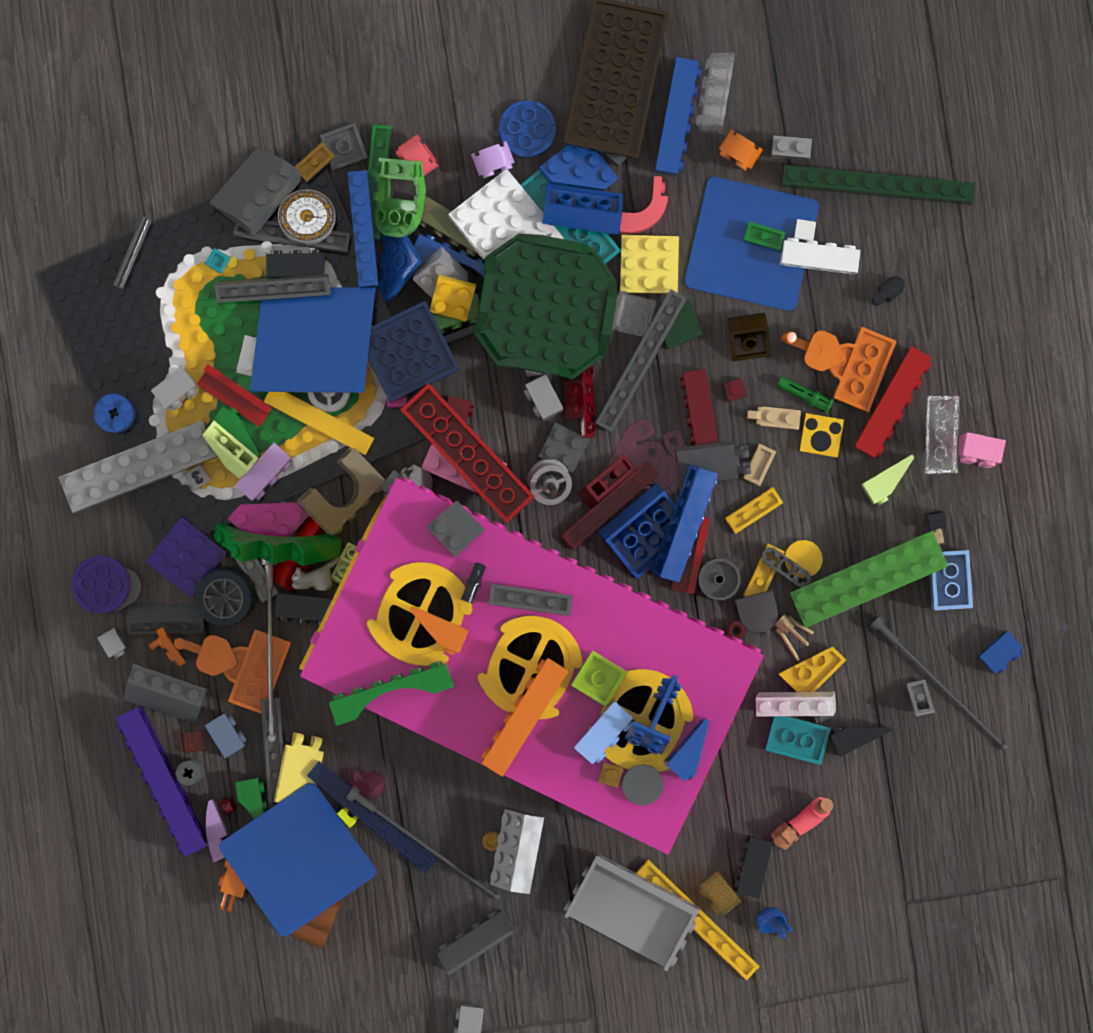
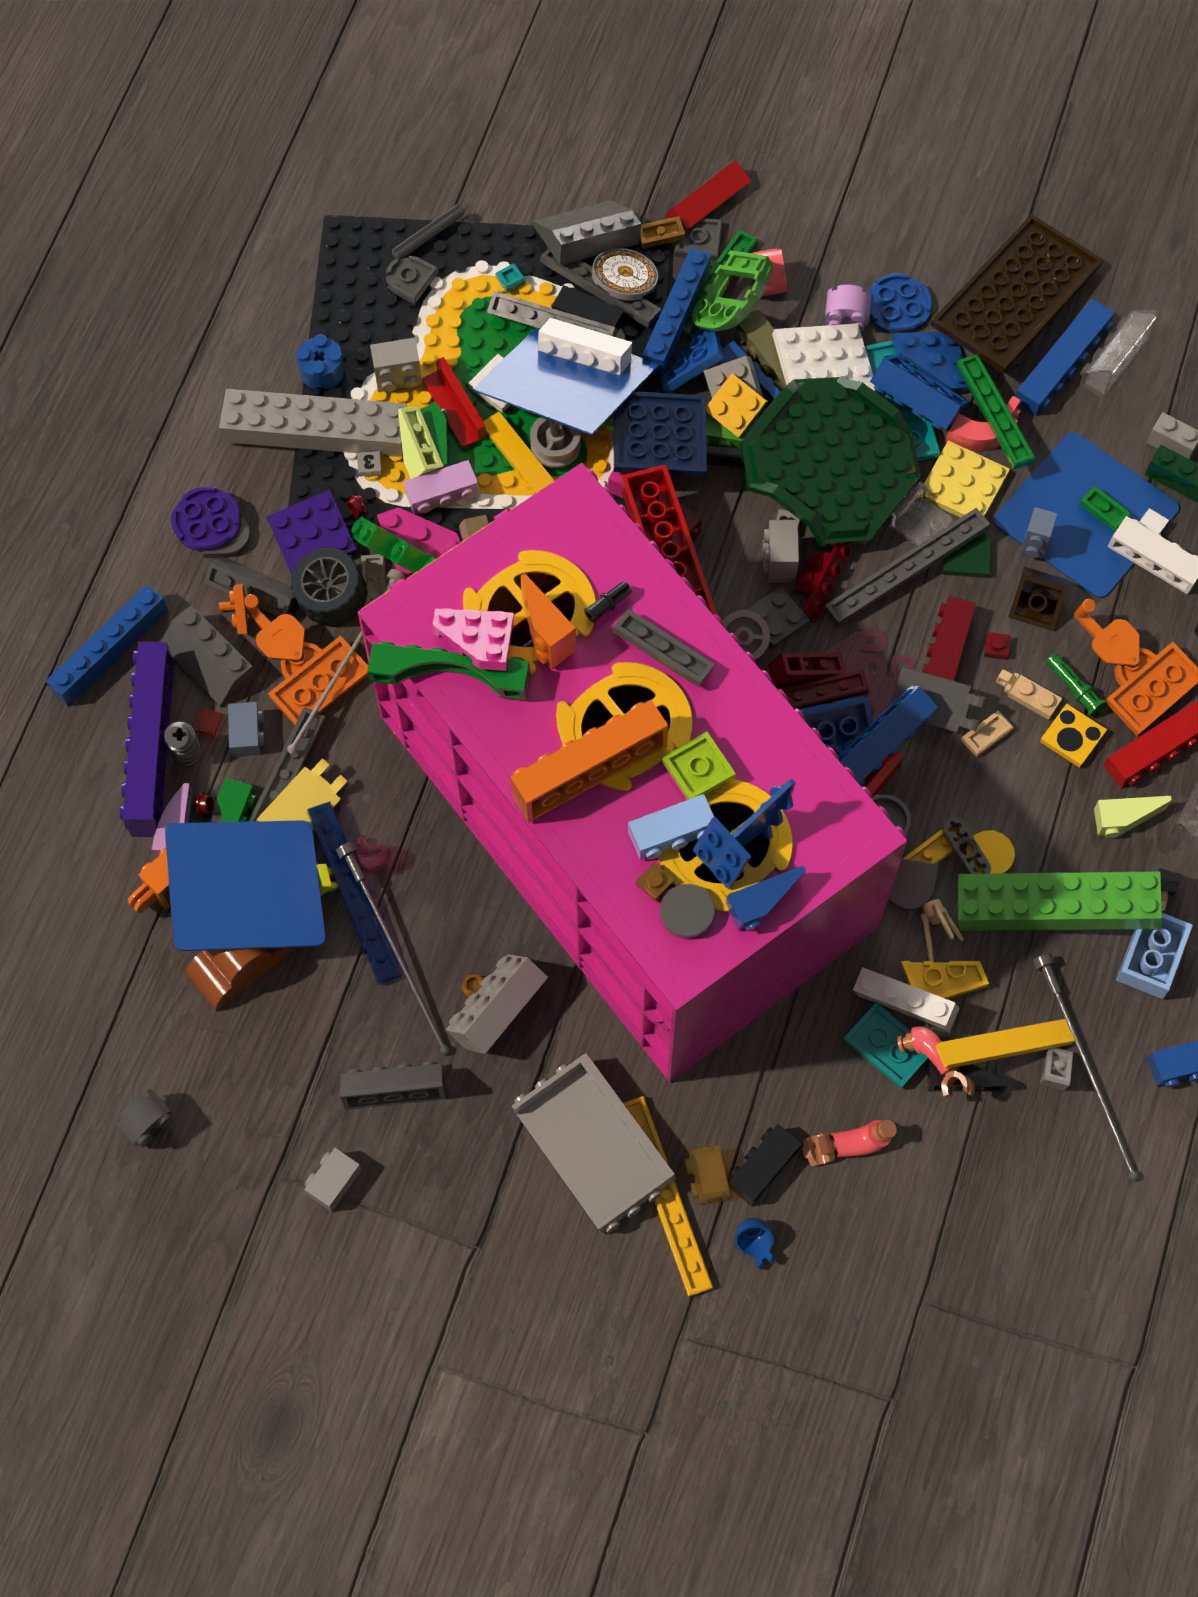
camera: 25 degrees right, 20 degrees down
(88, 722) = (107, 645): none -> blue brick
(113, 643) = (182, 581): light grey brick -> none
(139, 299) = (410, 277): none -> dark grey tile
(208, 517) = (356, 505): none -> dark red plate
(312, 304) = (584, 346): none -> white brick
(333, 106) = (710, 195): none -> red panel
(397, 659) = (478, 634): none -> plate
(455, 528) = (617, 537): dark grey slope -> none
(647, 198) = (995, 411): none -> green tile
(726, 288) = (1038, 533): none -> sand blue brick
(740, 150) = (1118, 412): orange brick -> none
(753, 510) = (957, 777): yellow tile -> none
(827, 731) = (924, 1042): none -> piece
(878, 703) = (1004, 1043): none -> yellow tile

